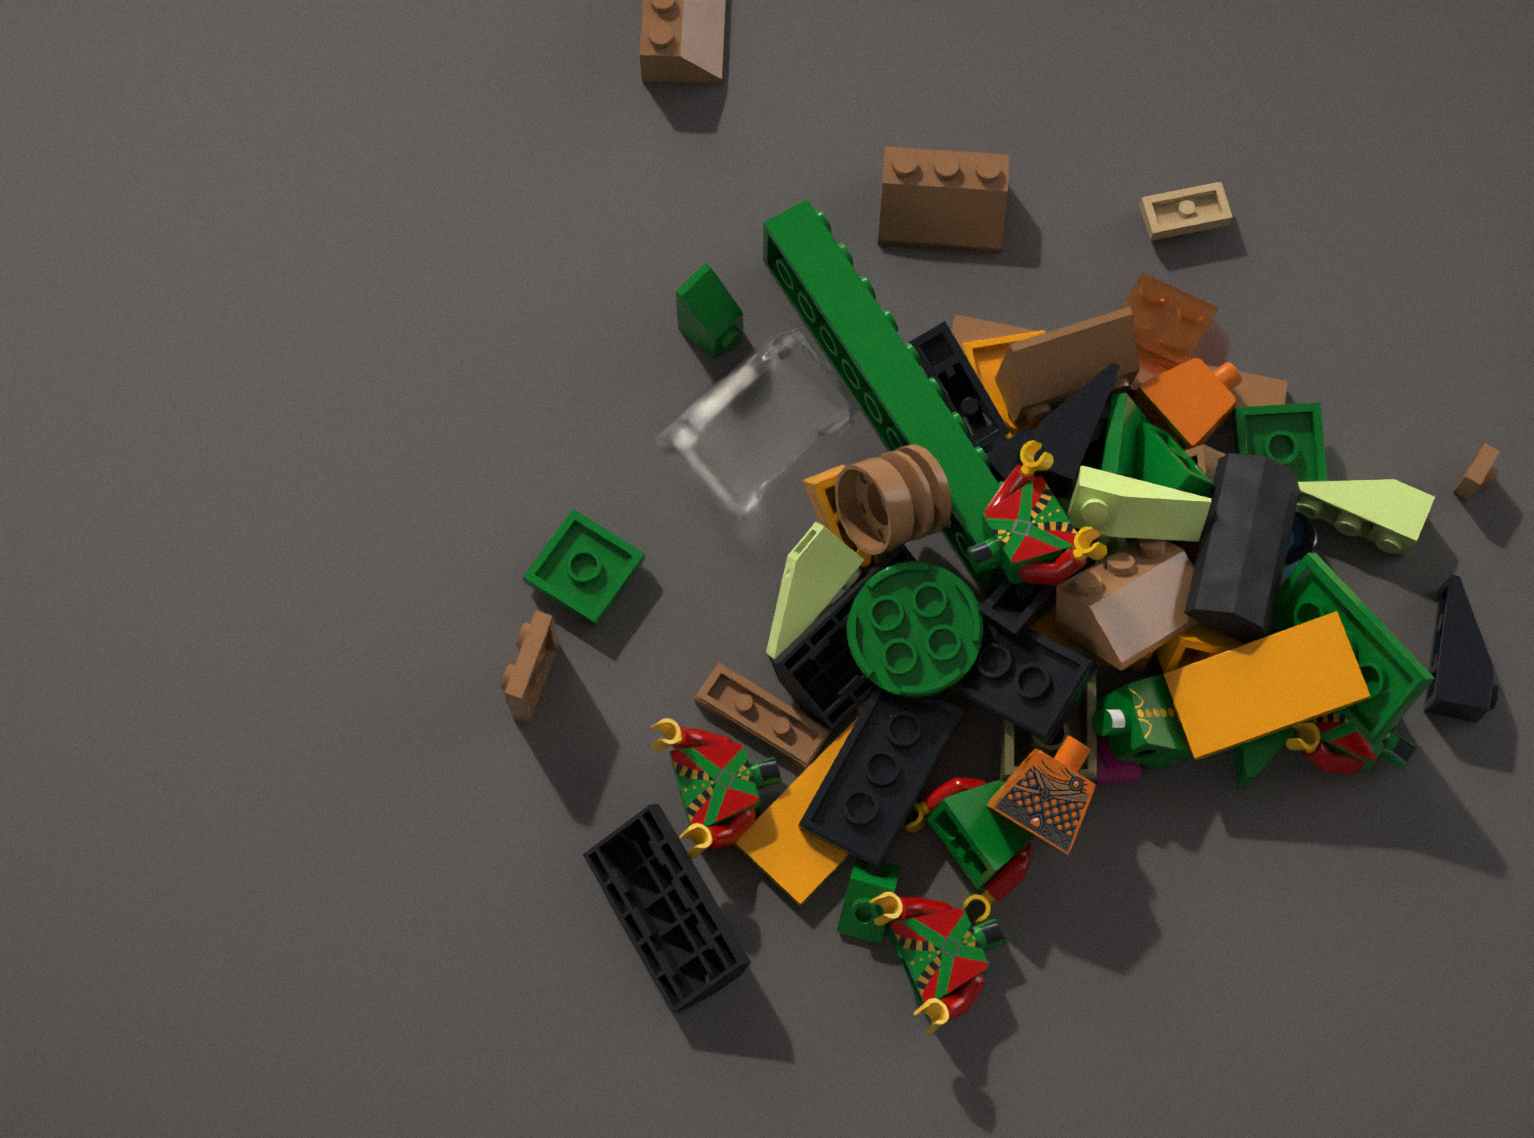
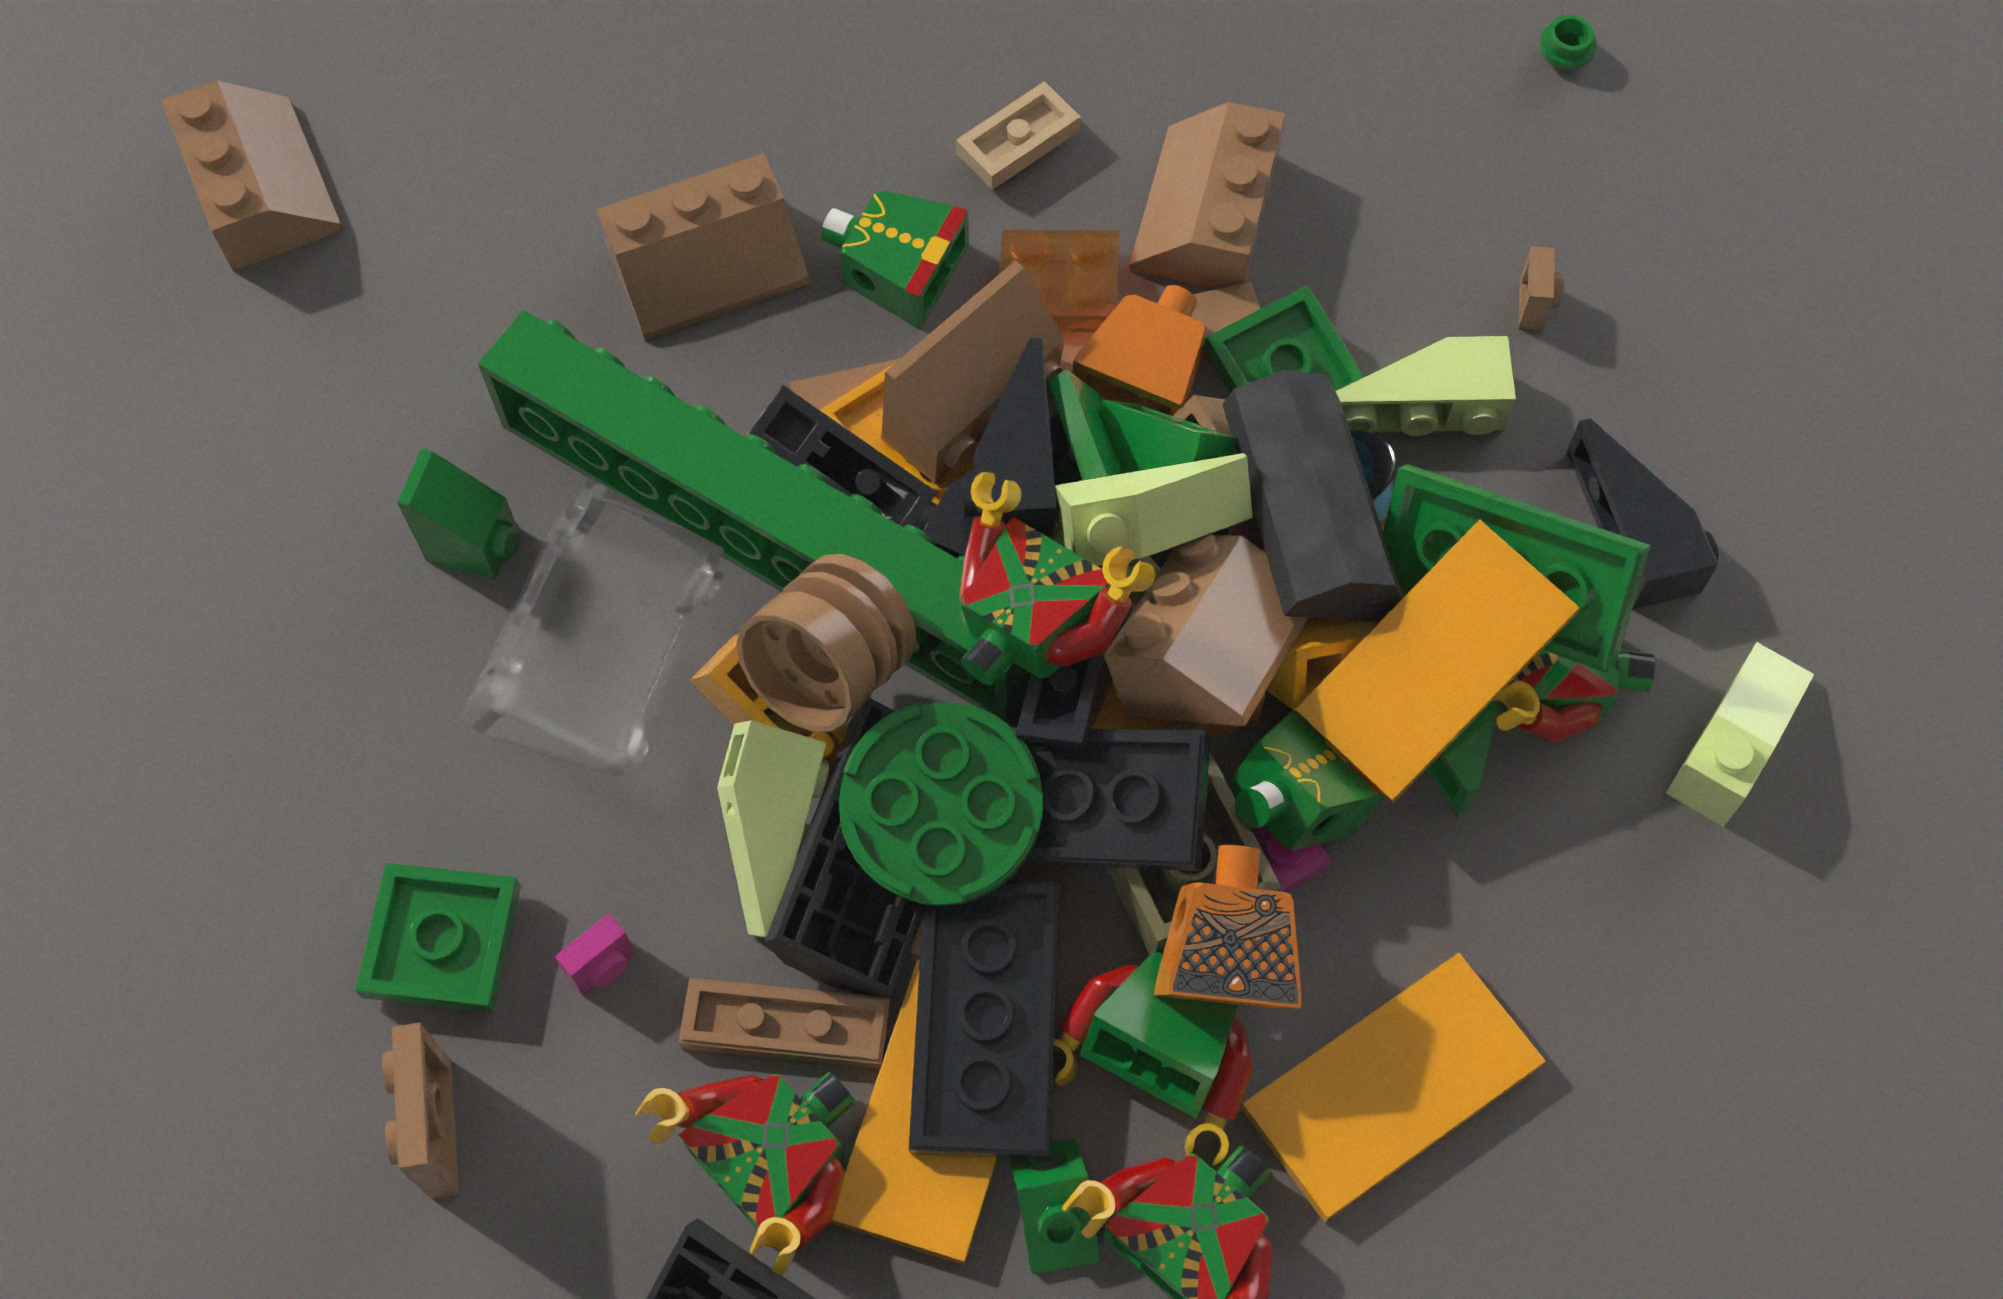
camera: 25 degrees left, 5 degrees down
(670, 623) = (596, 956): none -> dark pink plate
(1067, 258) = (899, 251): none -> green torso
(1108, 929) = (1392, 1086): none -> light orange tile
(1291, 311) = (1209, 196): none -> medium nougat slope
(1447, 822) = (1740, 735): none -> yellowish green slope

